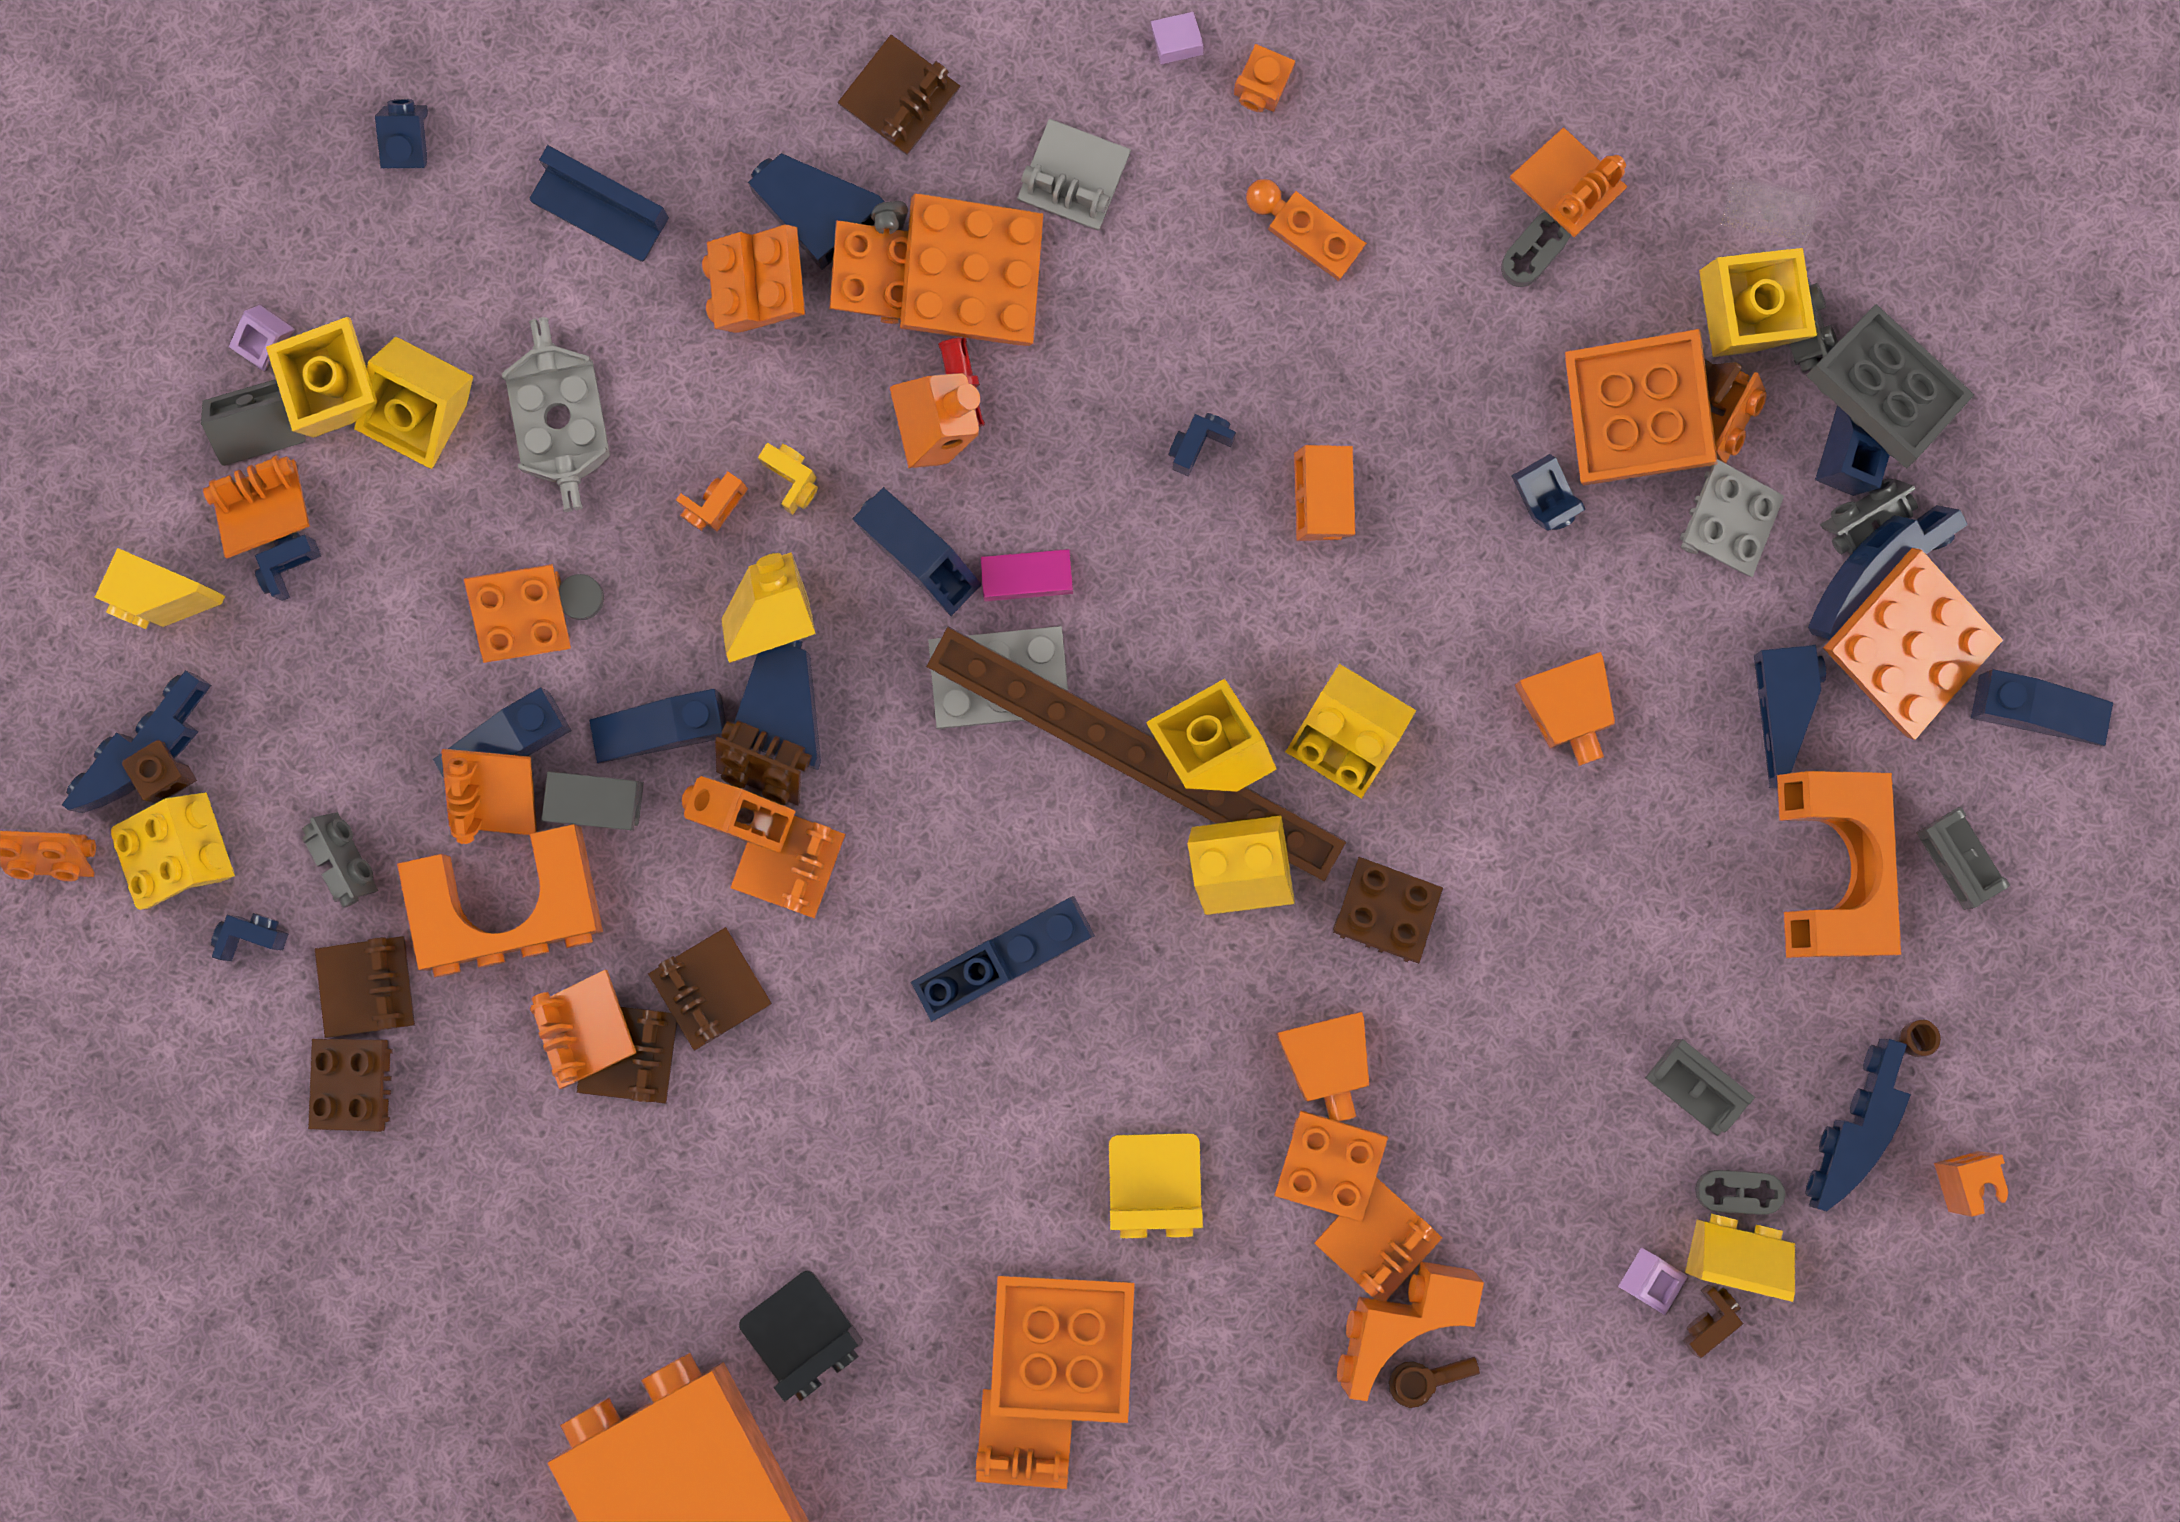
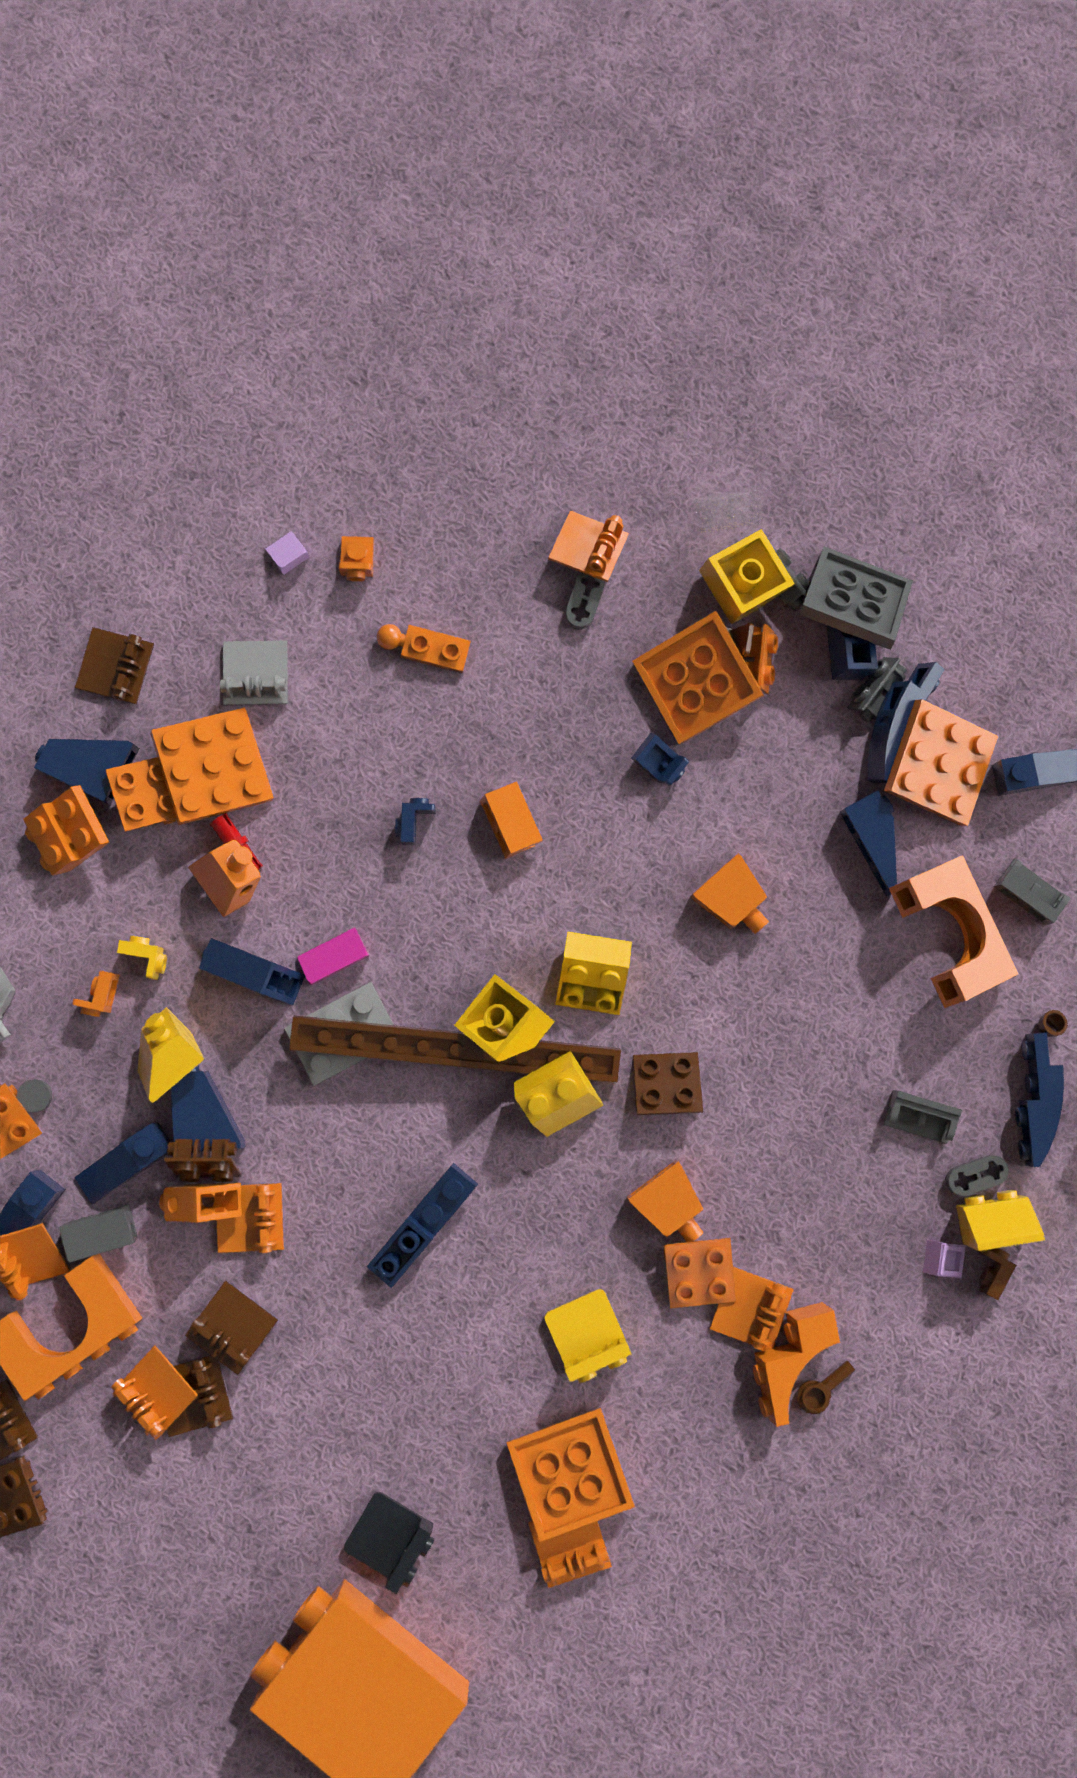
camera: 35 degrees left, 0 degrees up
(889, 215) = (140, 751): dark grey arm -> none
(1732, 518) = (788, 727): light grey hinge -> none

